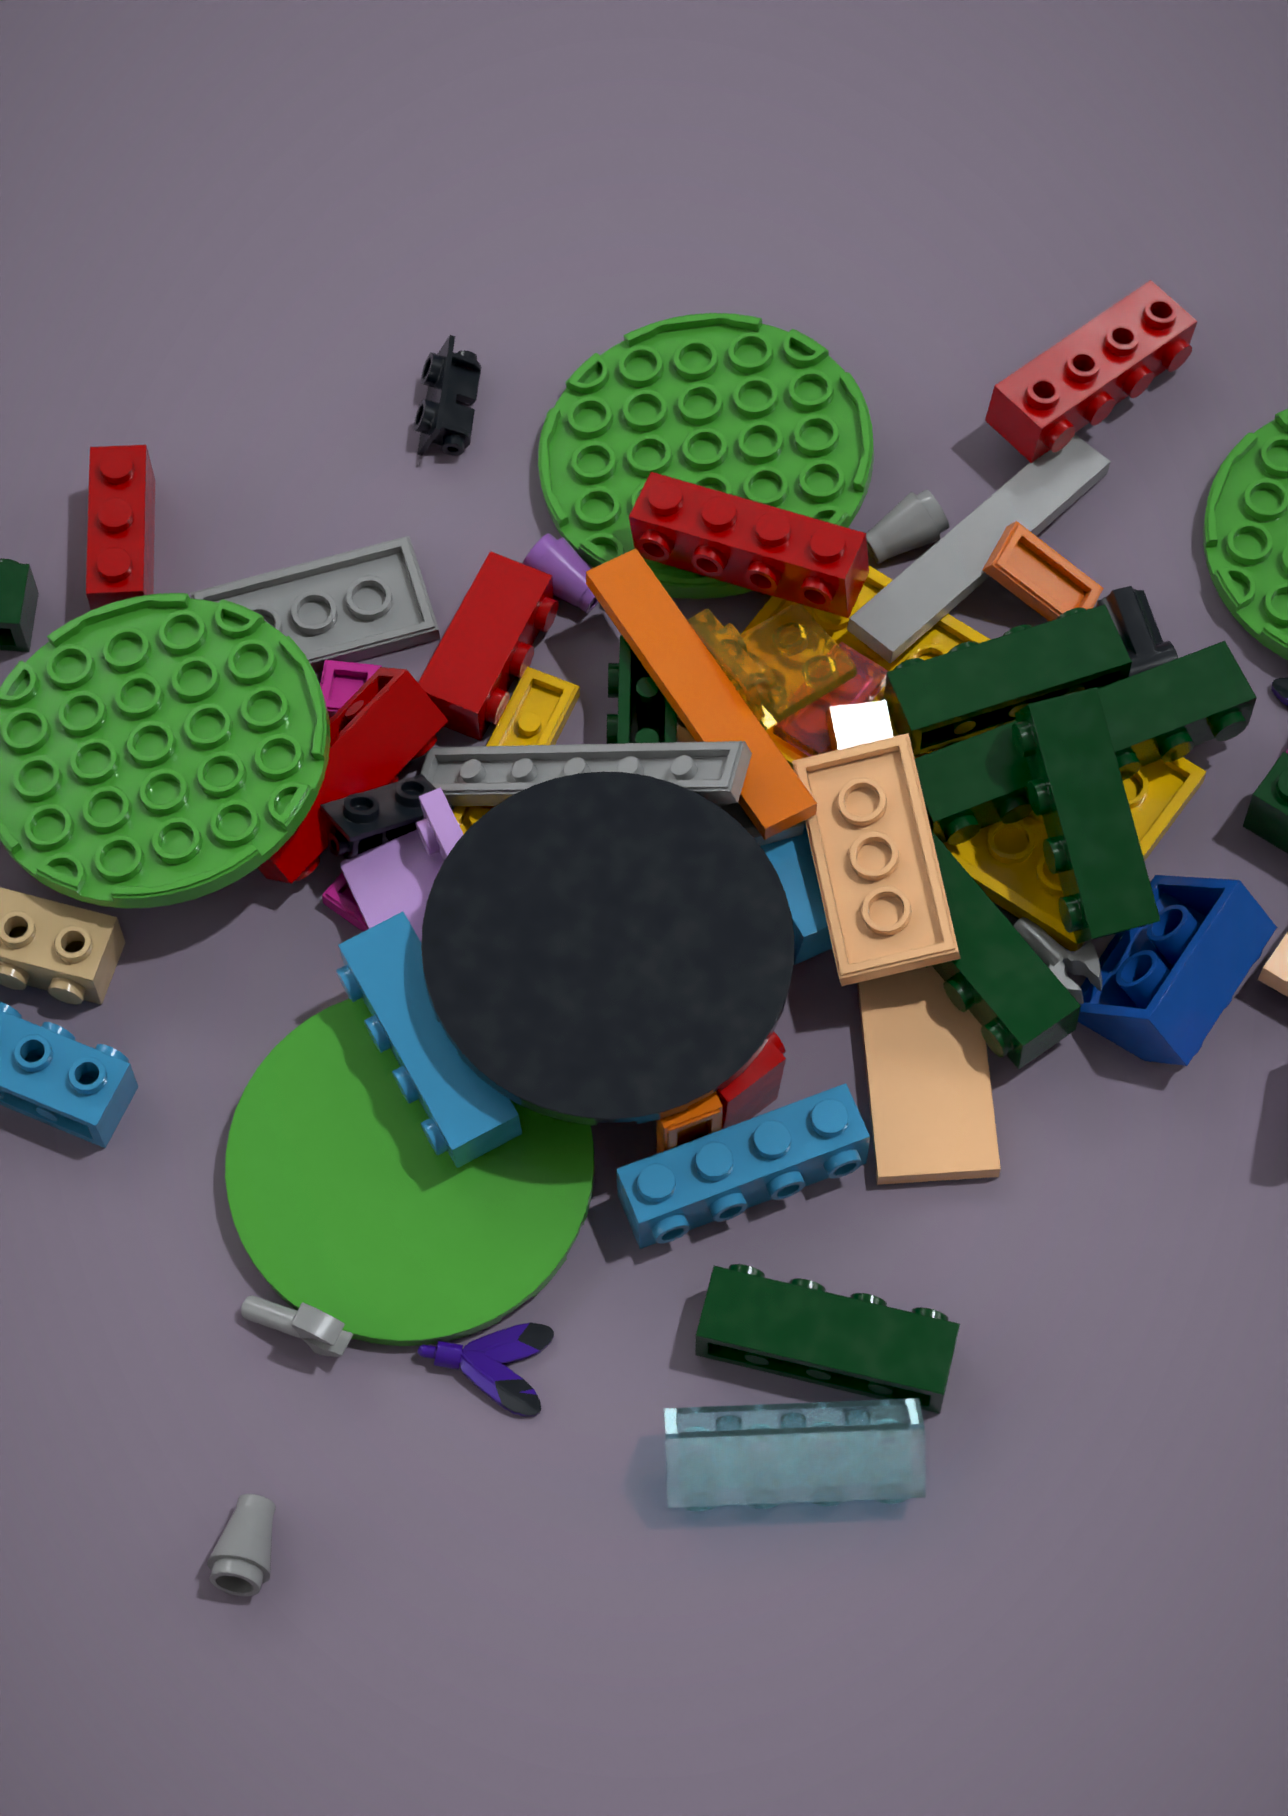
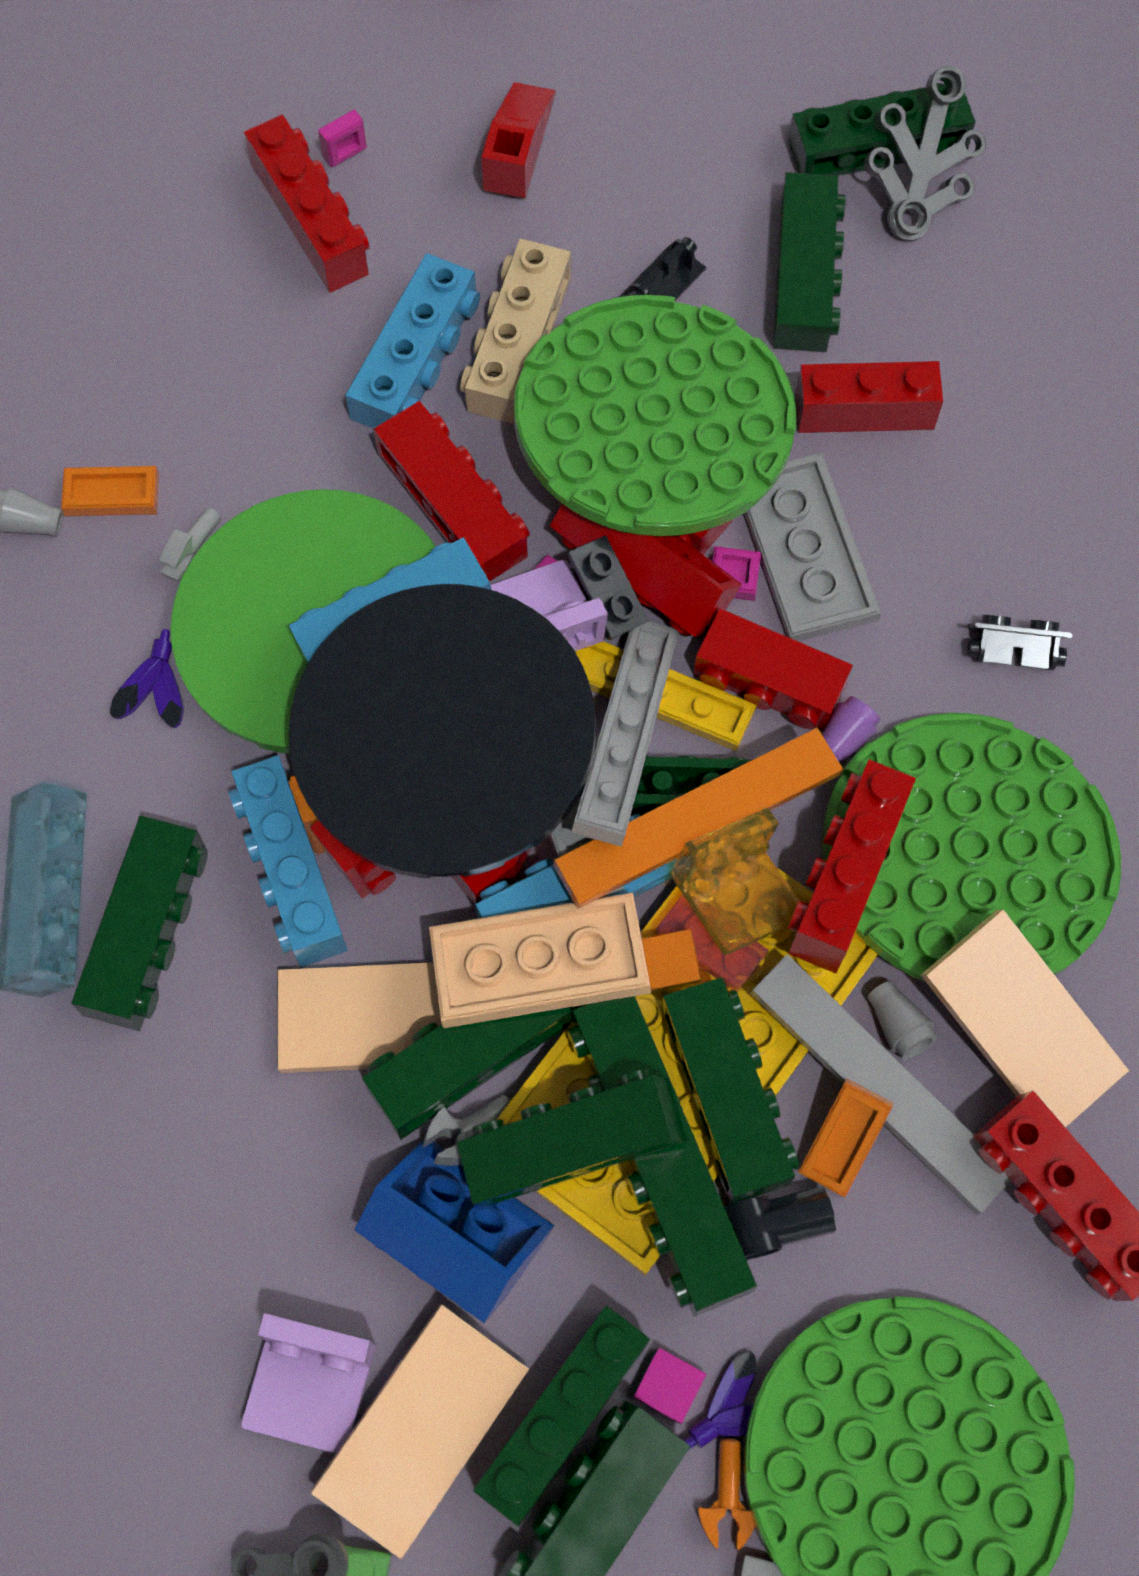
camera: 90 degrees right, 5 degrees up
(206, 1444) = (110, 491): none -> orange tile
(234, 1001) = (450, 489): none -> red brick
(903, 403) = (1024, 1018): none -> light nougat tile

